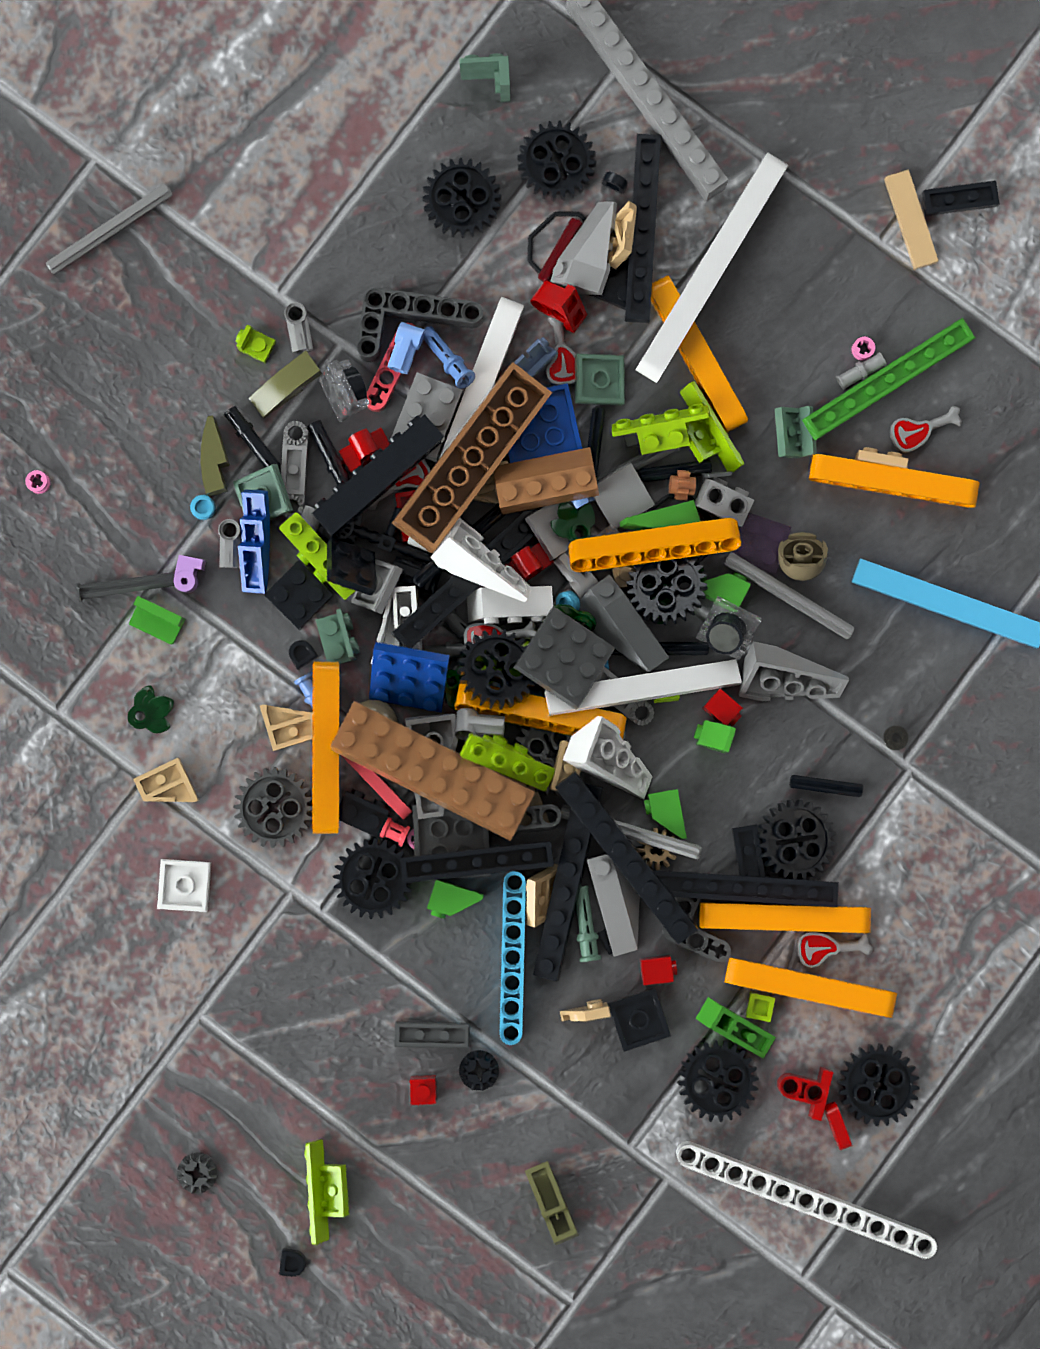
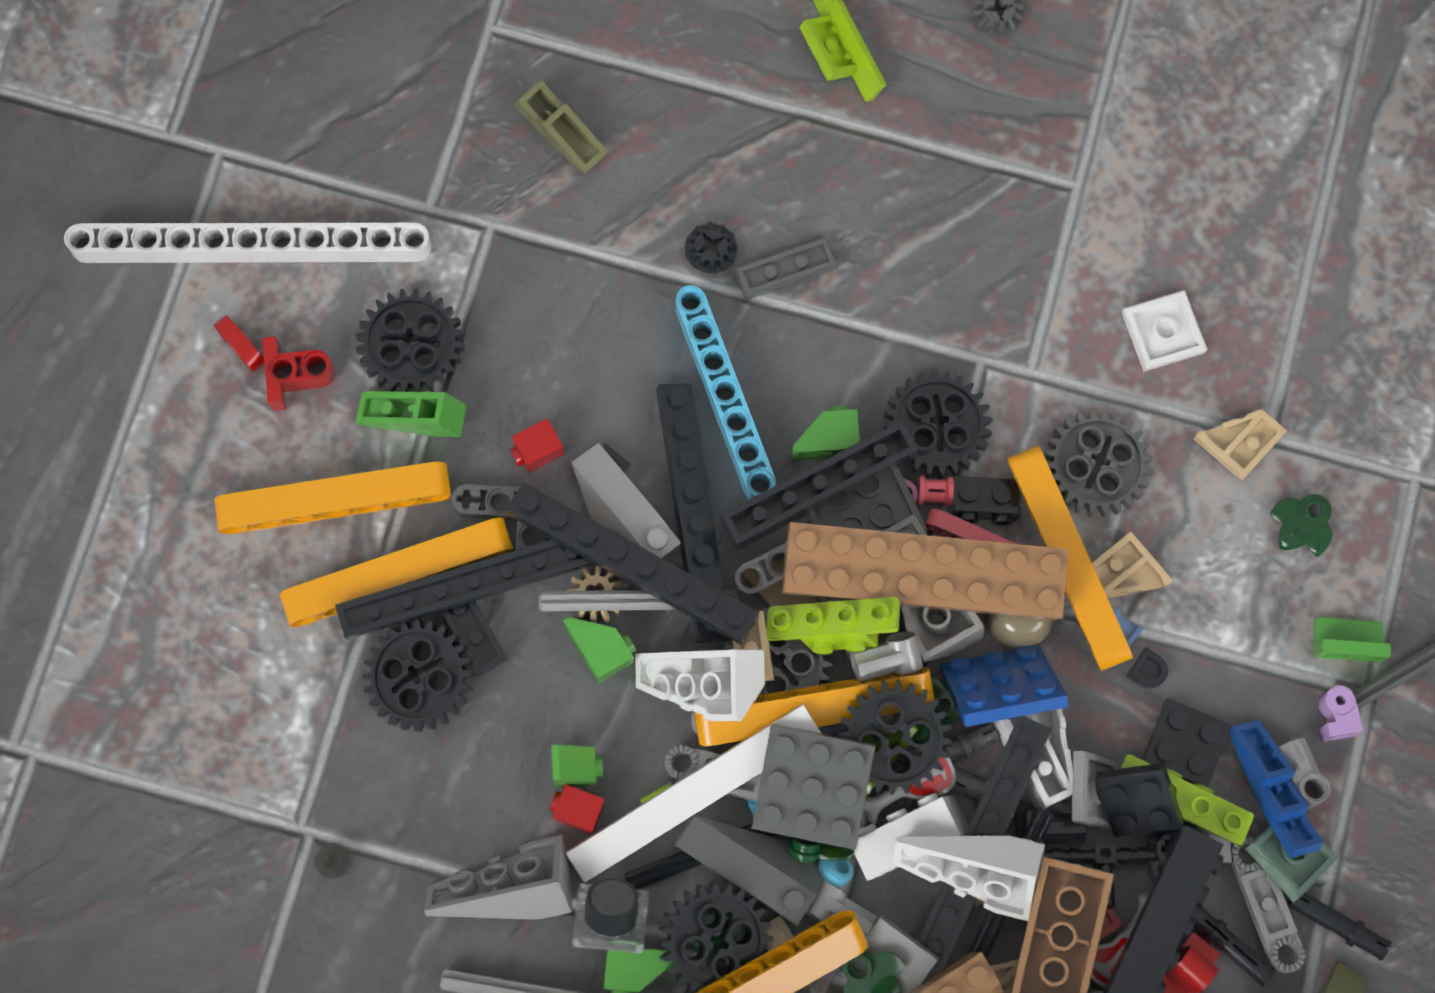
camera: 150 degrees right, 10 degrees down
(203, 507) = (1359, 809): medium azure tile -> none
(213, 459) = (1377, 877): olive slope -> none
(336, 637) = (1112, 706): sand green bracket -> none
(423, 1090) = (770, 197): red brick -> none
(530, 561) = (909, 901): red tile -> none
(538, 895) = (723, 478): tan wing -> none
(587, 936) = (637, 456): sand green pin -> none
(594, 1010) = (600, 361): tan wing -> none
(639, 1019) = (536, 378): black plate -> none
(760, 1007) = (389, 450): lime plate -> none
(816, 947) = (343, 549): light grey piece -> none
(826, 786) = (403, 762): black axle -> none
(900, 1091) = (173, 413): black gear -> none

